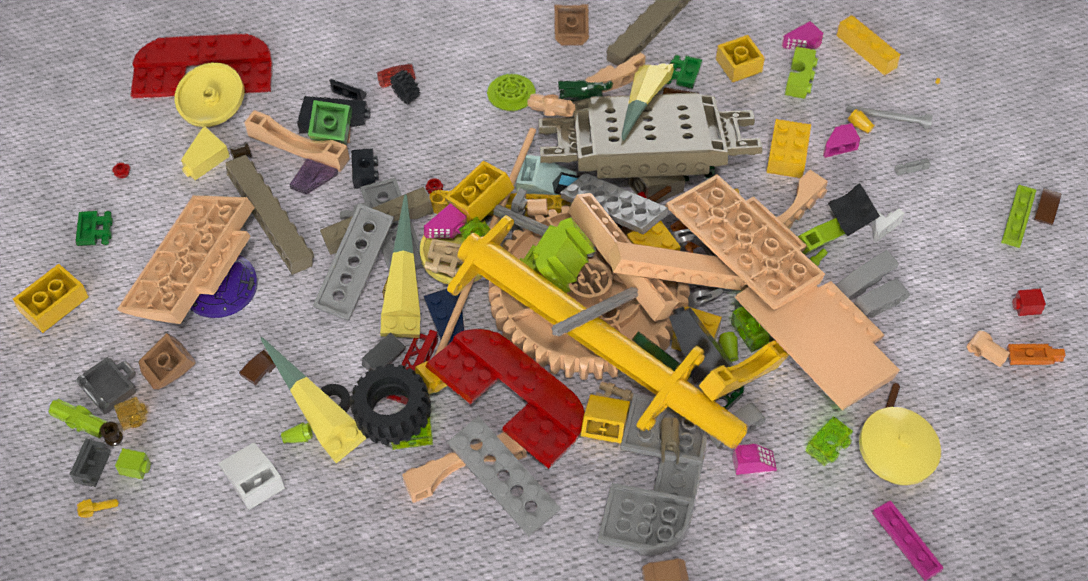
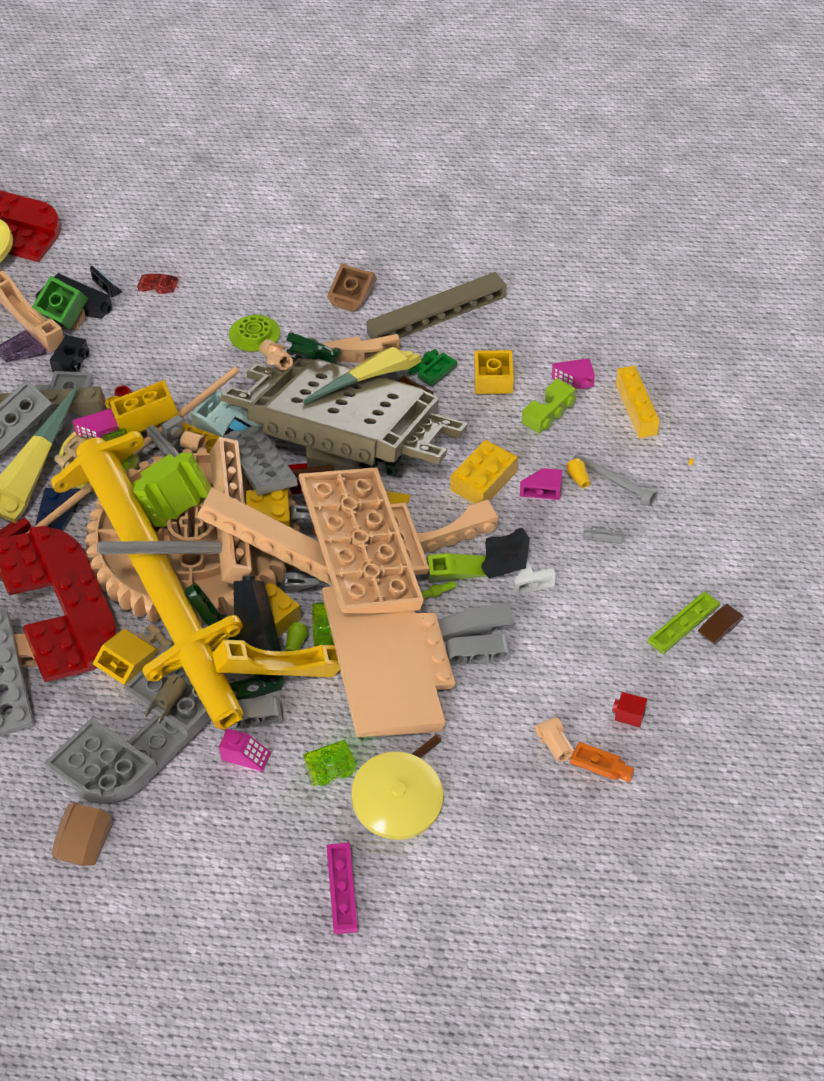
camera: 25 degrees right, 5 degrees down
(405, 86) = (154, 294): black tyre -> none

